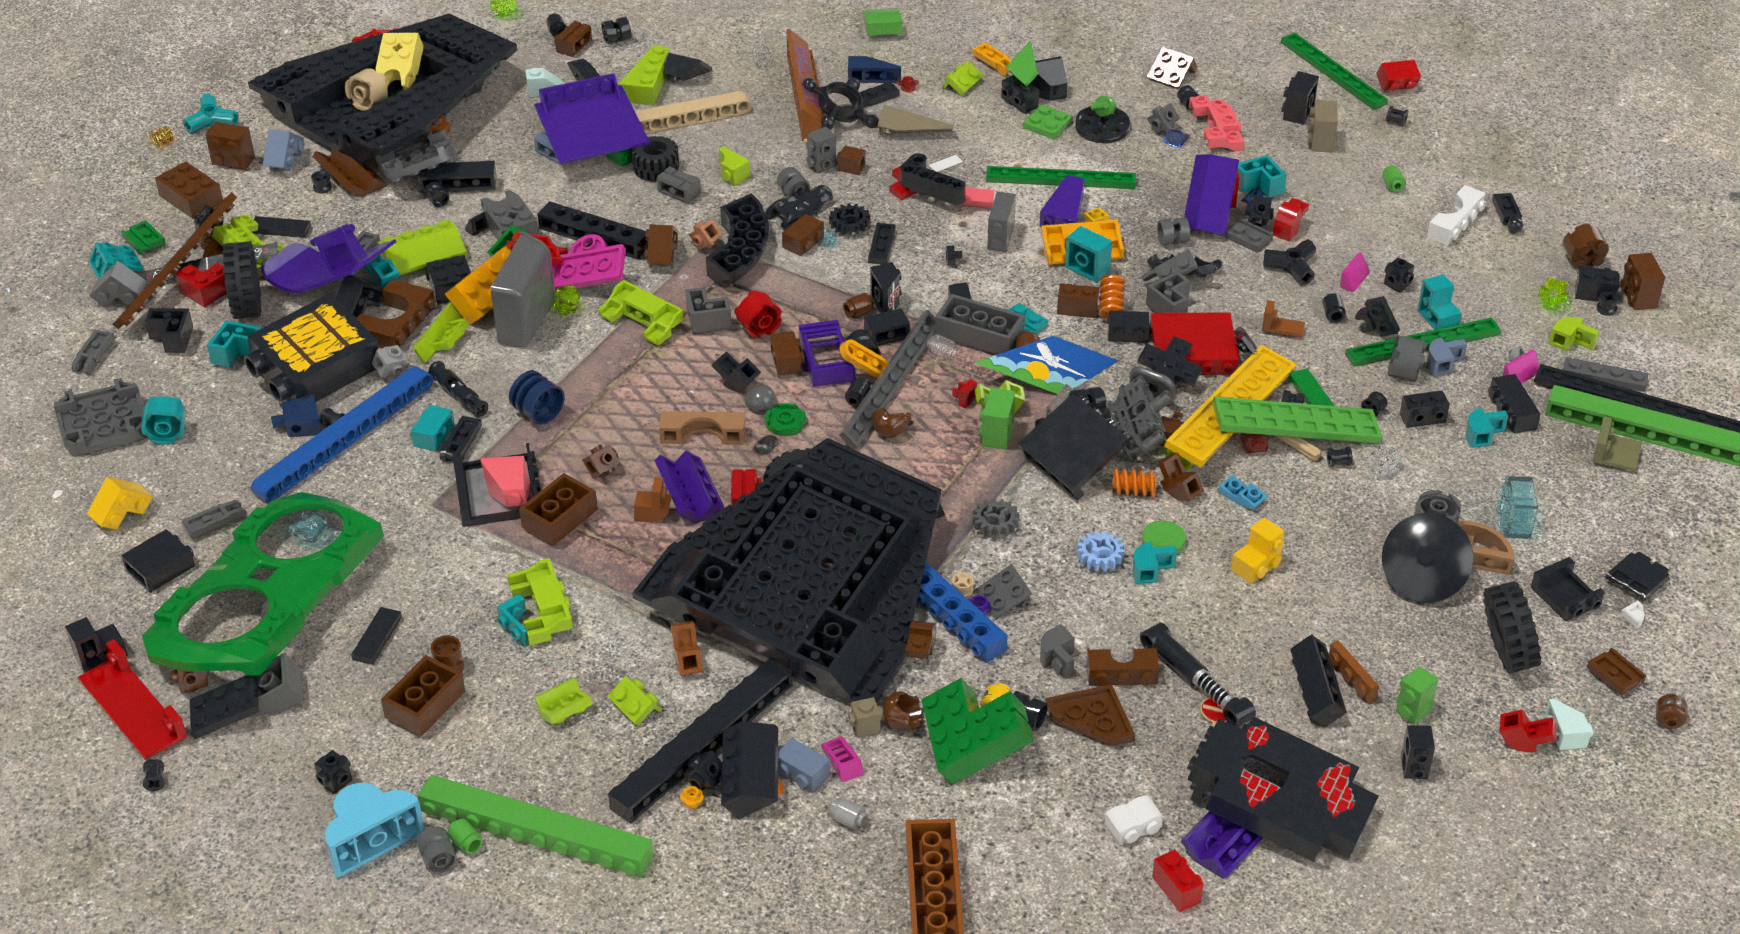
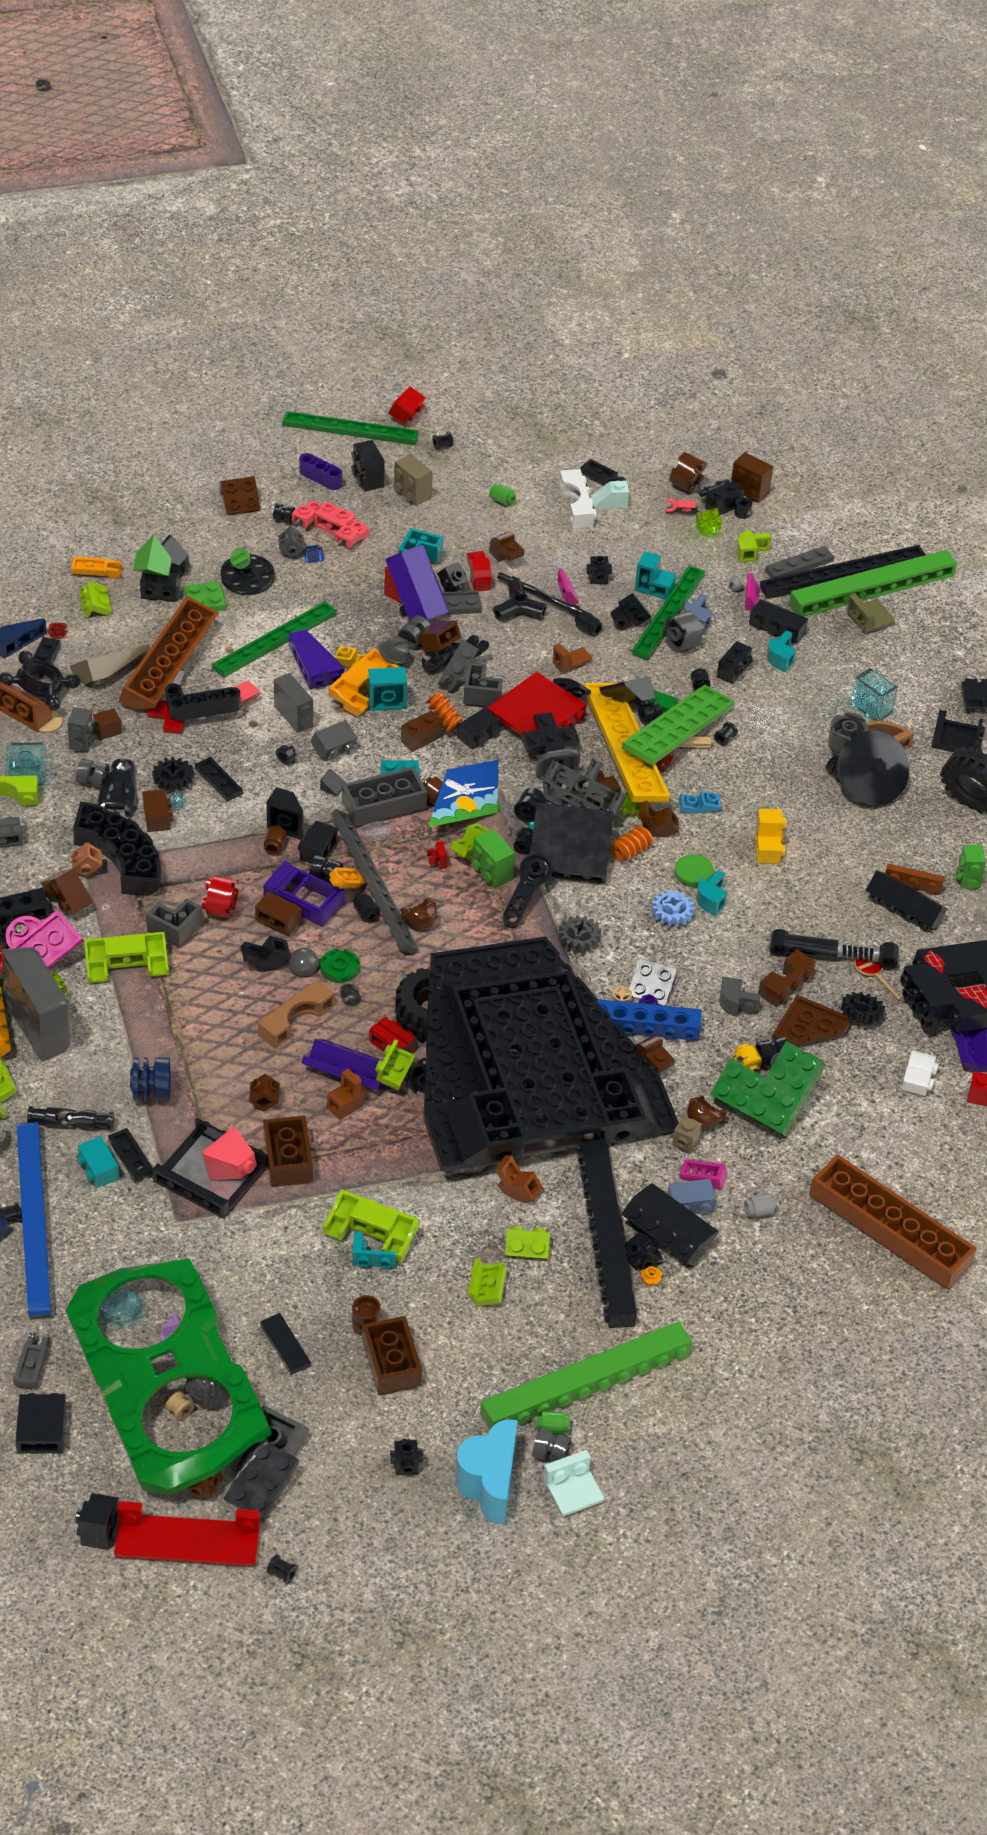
camera: 50 degrees left, 5 degrees up
(250, 617) = (179, 1405): none -> tan wheel
(415, 888) = (572, 1483): none -> light aqua bracket
(707, 502) = (395, 1066): none -> lime bracket
(758, 148) = (26, 760): none -> clear light blue brick
(957, 135) = (167, 655): none -> dark orange slope
(995, 455) = (527, 886): none -> black beam
(998, 265) = (334, 740): none -> dark grey brick
(1136, 234) = (396, 650): none -> dark grey piece
(1155, 734) = (862, 1008): none -> black gear
(1178, 242) = (440, 635): none -> reddish brown brick
(1260, 85) = (320, 471): none -> dark purple beam
(1289, 370) = (631, 691): none -> black slope
(1326, 268) = (573, 609): none -> black bar
(1337, 213) = (505, 547): none -> reddish brown brick
(1493, 230) = (611, 496): none -> light aqua slope
(1552, 272) = (686, 506): none -> coral plate

